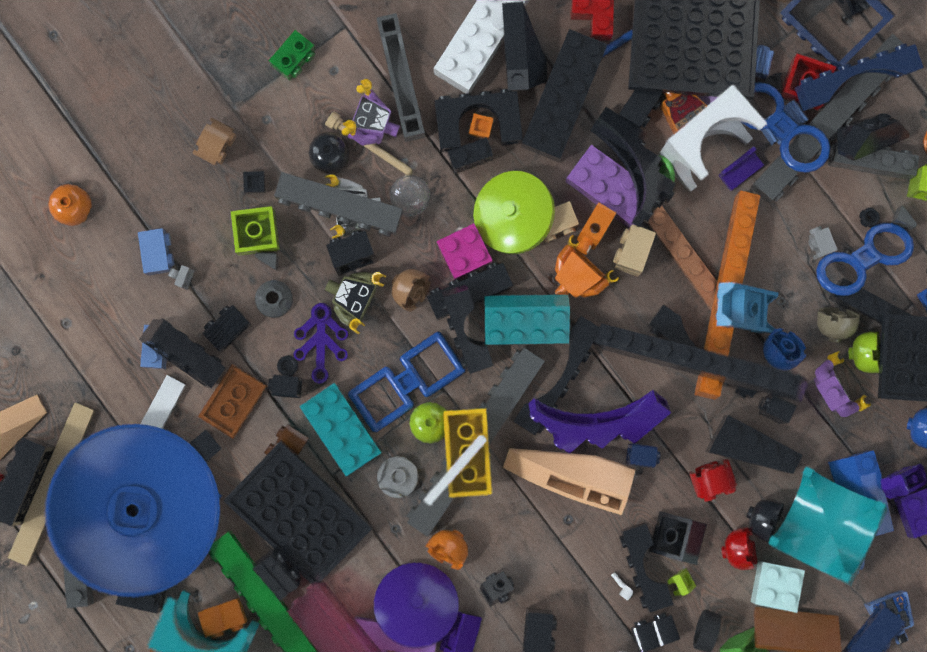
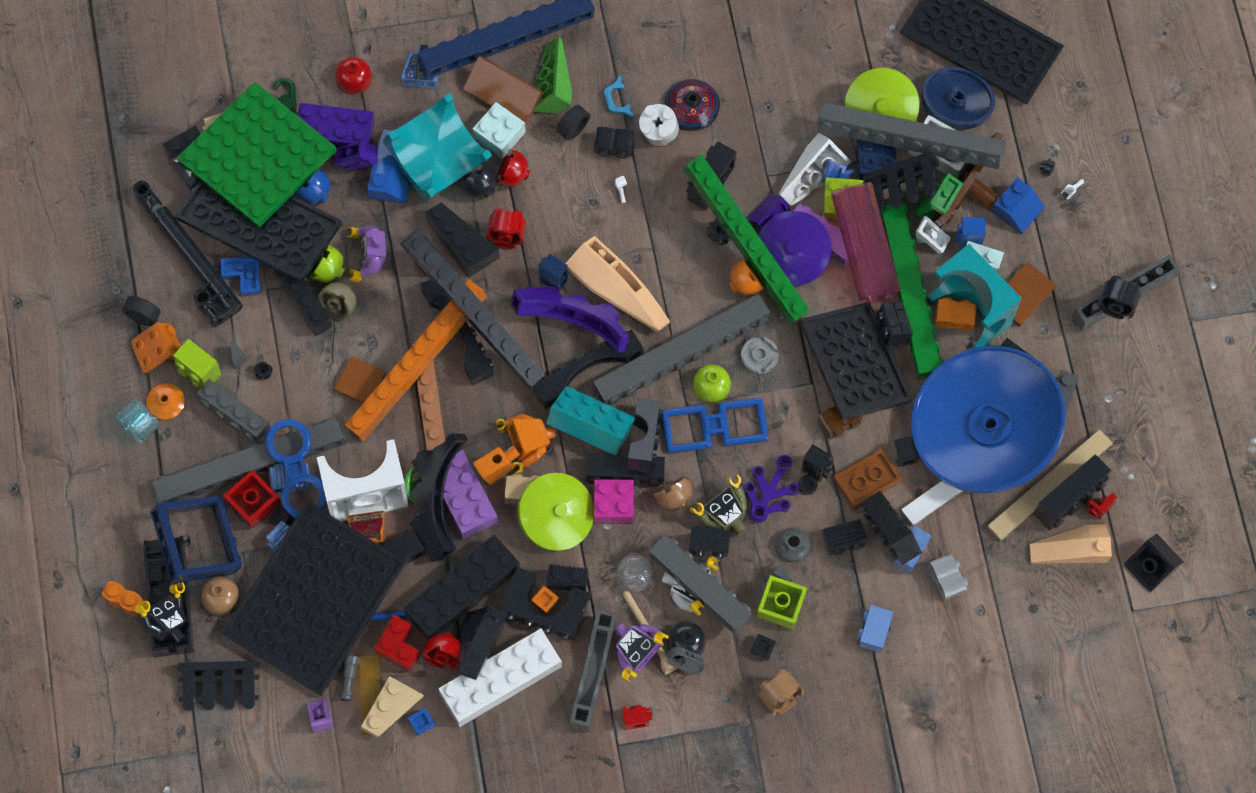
camera: 155 degrees left, 15 degrees down
(69, 204) = (931, 706): orange cylinder -> none
(108, 338) = (947, 577): none -> light grey brick
(183, 276) = (862, 597): light grey tile -> none
(293, 55) = (676, 737): green brick -> none
(319, 130) = (690, 662): none -> dark grey piece
(339, 56) = (636, 717): none -> red brick
(340, 429) = (788, 410): teal brick -> none
(456, 468) = (711, 320): white tile -> none
(461, 430) = (694, 336): yellow brick -> none
(467, 585) = (746, 239): none -> green brick
(551, 28) = (442, 651): none -> red cylinder
(634, 251) = (478, 430): tan piece -> none
(654, 594) = (591, 213): black arch -> none
(678, 538) = (557, 202): black slope -> none
(683, 581) = (571, 168): lime tile -> none
(741, 169) = (347, 459): dark purple panel -> none
(744, 307) = (410, 338): dark azure piece -> none
(771, 254) = (359, 380): none -> dark orange tile
(783, 349) = (393, 298): blue cylinder -> none
(821, 242) = (314, 368): light grey brick -> none
(864, 259) = (288, 335): blue bar -> none
(869, 136) = (231, 428): black wedge -> none
(896, 64) = (250, 478): dark blue arch -> none

